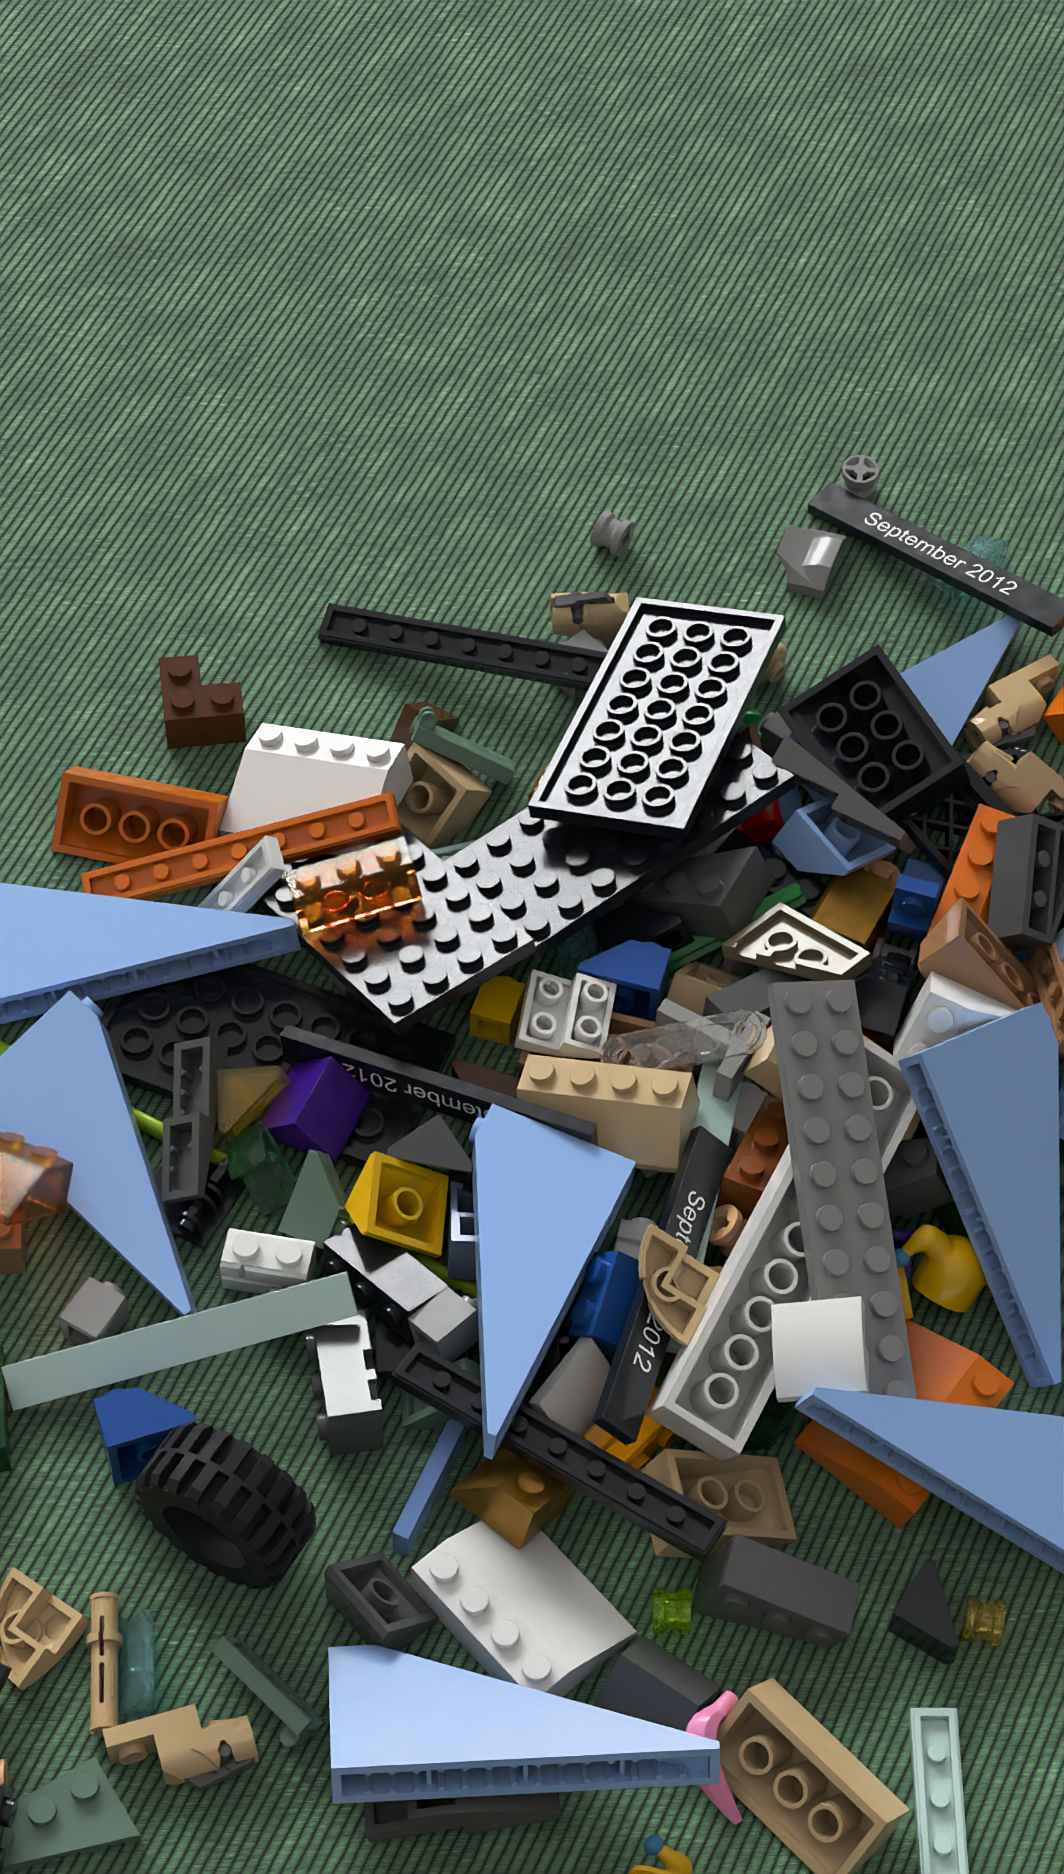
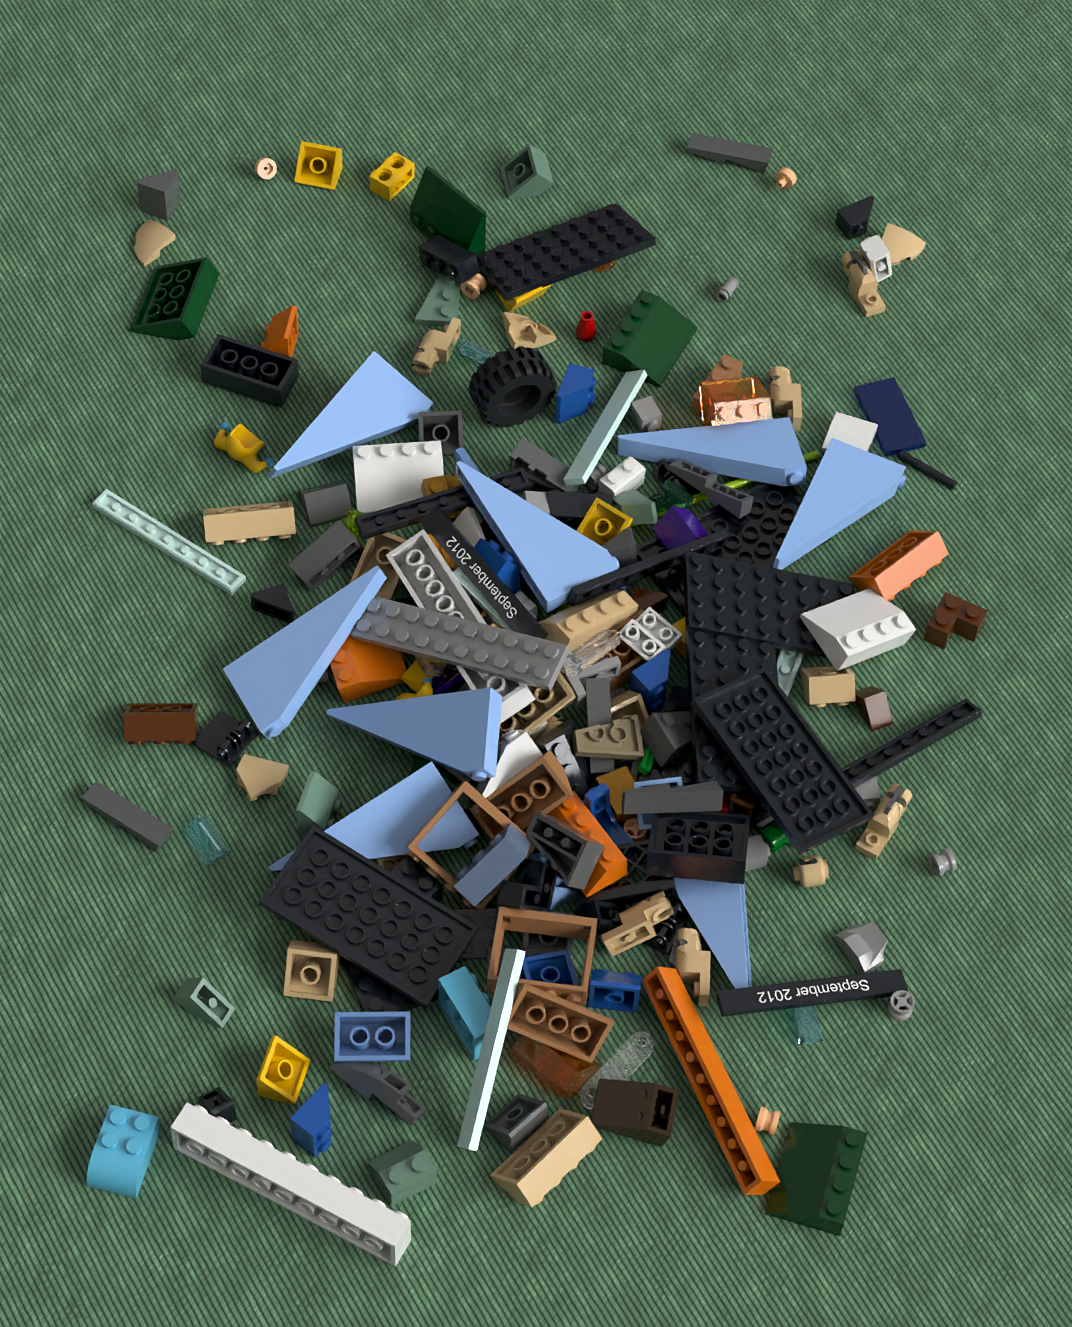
camera: 125 degrees right, 0 degrees up
(104, 1645) = (484, 339): tan pin -> none
(215, 858) = (840, 578): orange tile -> none
(245, 1095) = (708, 507): clear yellow slope -> none
(248, 878) = (820, 564): white tile -> none
(298, 1716) = (440, 382): sand green hinge -> none
(353, 885) = (784, 591): clear orange slope -> none
(459, 748) = (841, 701): sand green hinge -> none
(674, 1284) = (475, 572): tan brick -> none
(706, 1724) = (286, 490): bright pink piece -> none
(819, 1347) = (399, 591): white slope -> none
(984, 1620) = (255, 621): clear yellow wheel -> none

